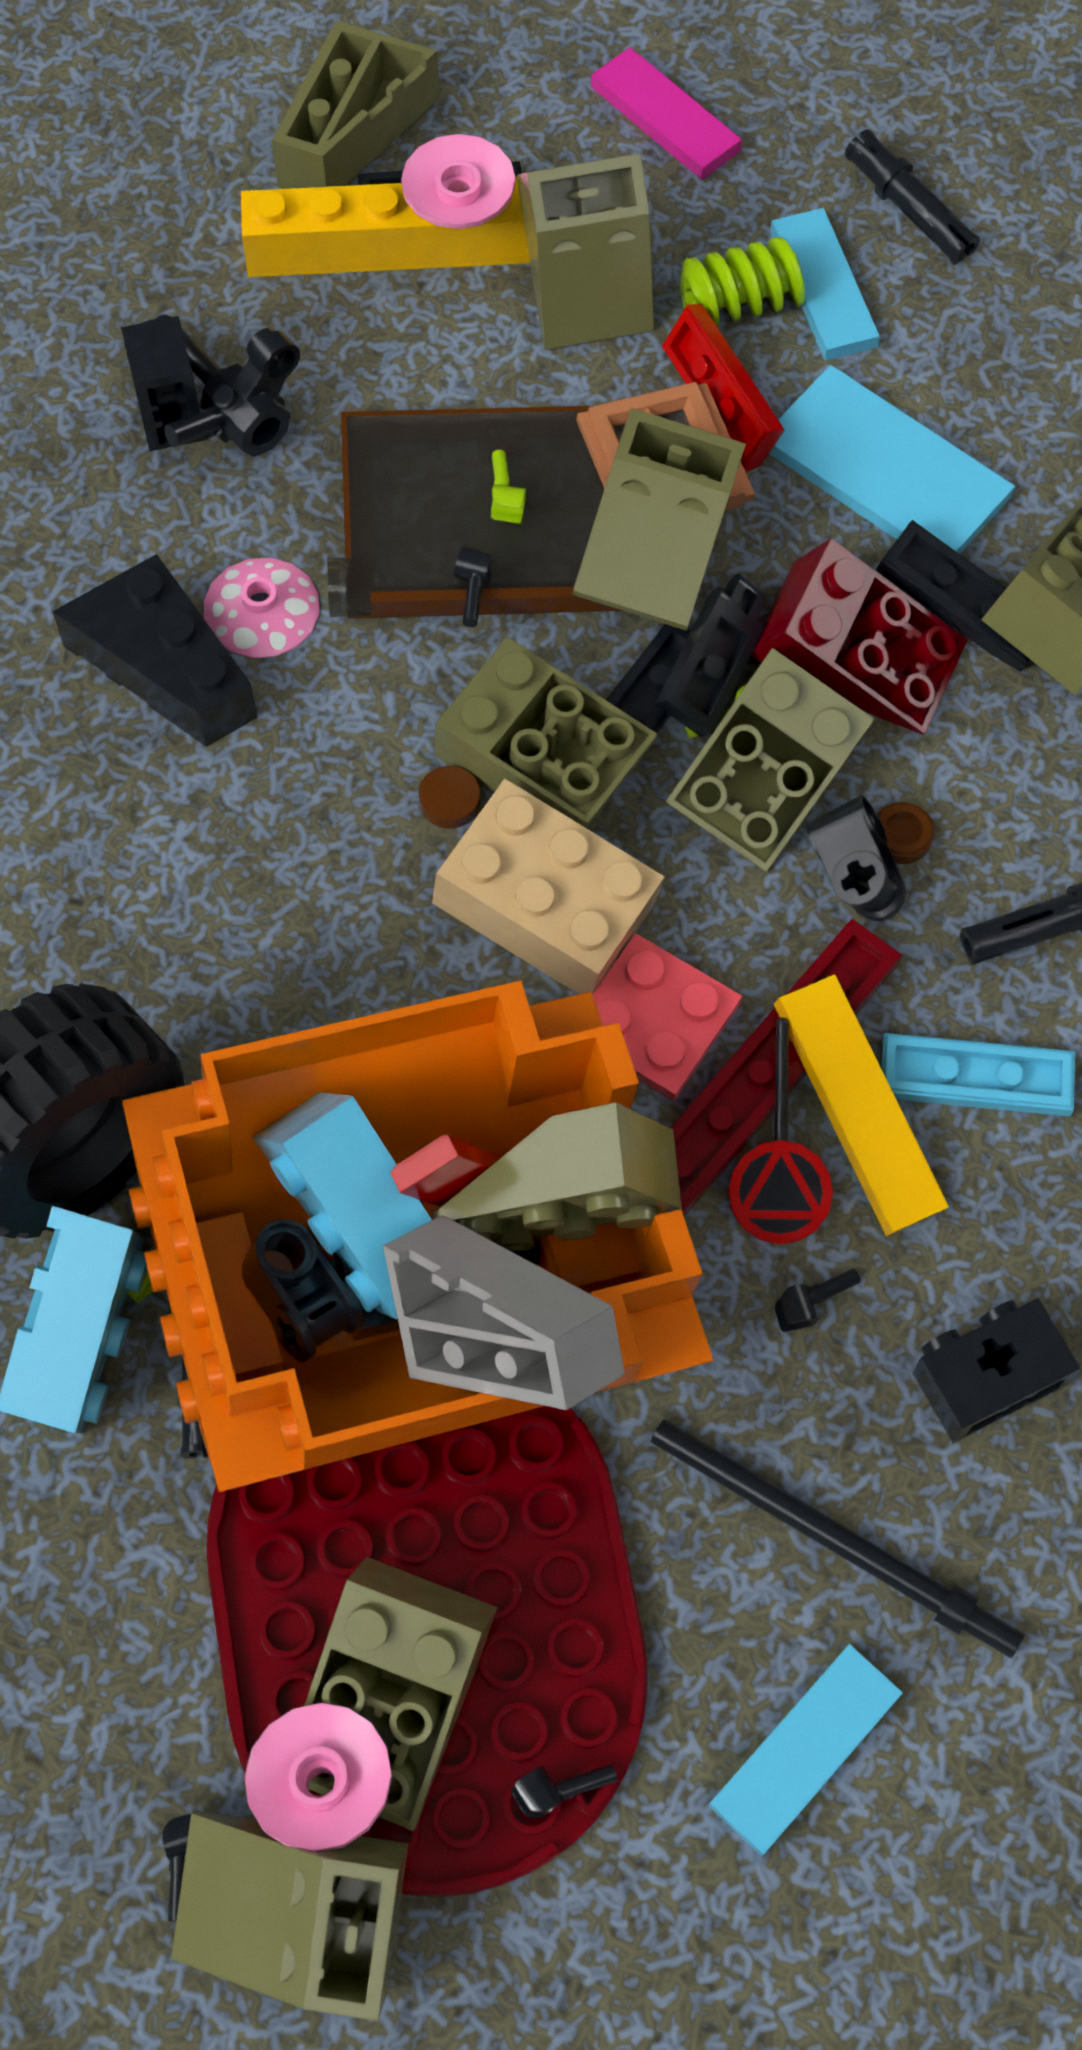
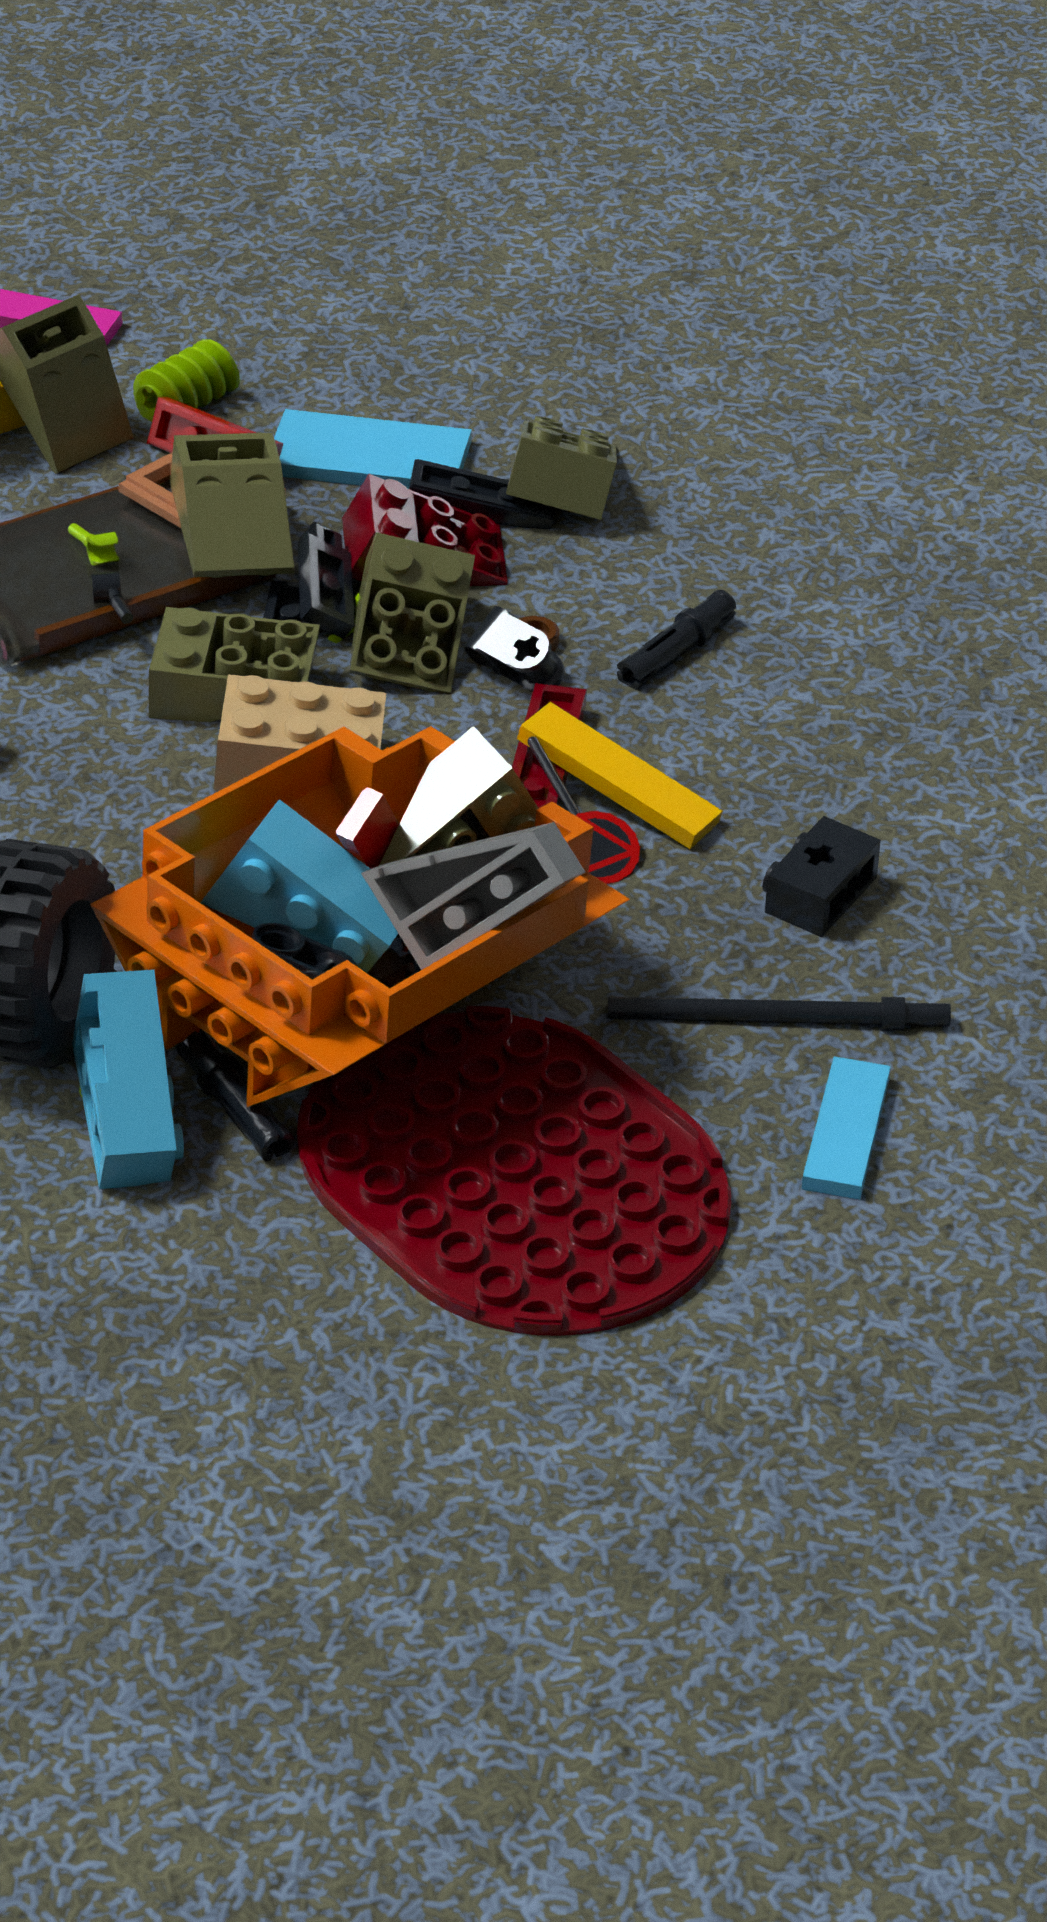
camera: 30 degrees left, 25 degrees down
(175, 1844) = (436, 1353): black hand -> none
(291, 1918) = (550, 1336): olive slope -> none
(309, 1744) = (517, 1234): bright pink dish -> none
(405, 1664) = (527, 1192): olive slope -> none
(449, 797) = (179, 731): reddish brown tile -> none
(539, 1795) = (683, 1210): black hand -> none
(796, 1306) = (660, 900): black hand -> none
(831, 293) = (260, 378): medium azure tile -> none
(897, 182) = (287, 308): black pin -> none
(979, 1074) = (696, 737): medium azure tile -> none

